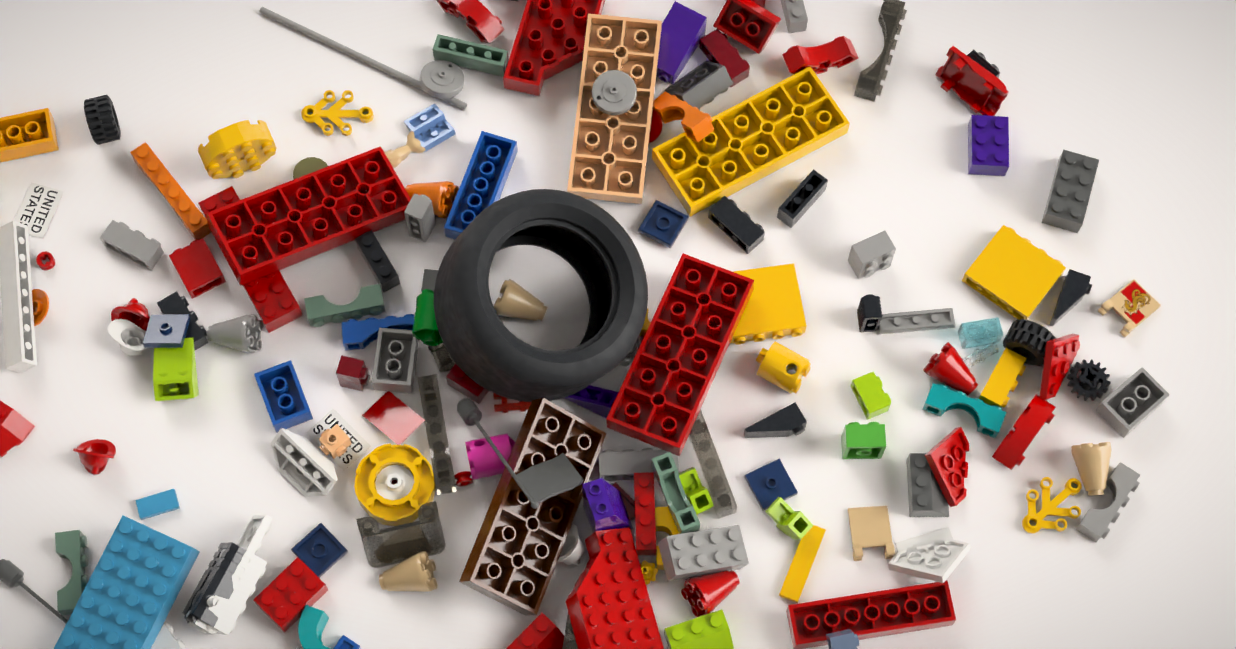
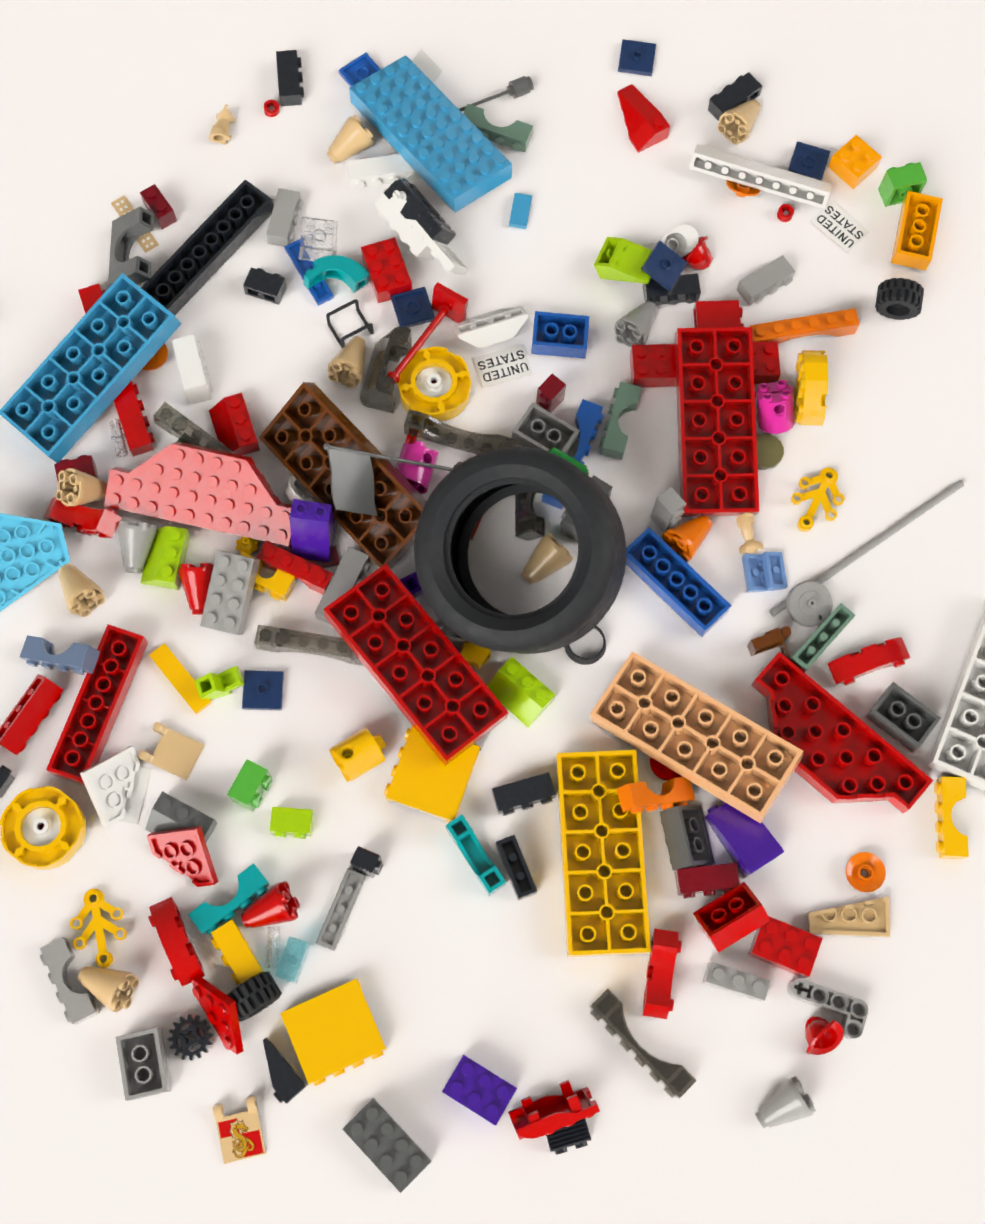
camera: 115 degrees right, 5 degrees up
(95, 454) = (587, 179): red helmet -> none
(267, 172) = (775, 407): none -> dark pink cylinder
(302, 512) = (447, 304): none -> red tile
(334, 442) = (497, 356): light nougat brick -> none
(348, 602) = (369, 326): none -> black piece
(377, 261) = (649, 464): black brick -> none
(393, 418) = (495, 413): sticker -> none
(494, 93) = (770, 640): none -> reddish brown piece
(614, 92) = (705, 733): light grey wheel -> none
(657, 262) = (520, 692): none -> lime slope
(663, 224) = (559, 728): dark blue plate -> none
(673, 492) = (271, 590): sand green arch -> none
(695, 492) = (290, 618): lime brick -> none
(780, 424) = (310, 726): black slope -> none
(811, 234) = (475, 855): none -> teal arch
(871, 255) = (423, 898): light grey brick -> none
(1003, 597) = (39, 846): none -> yellow piece

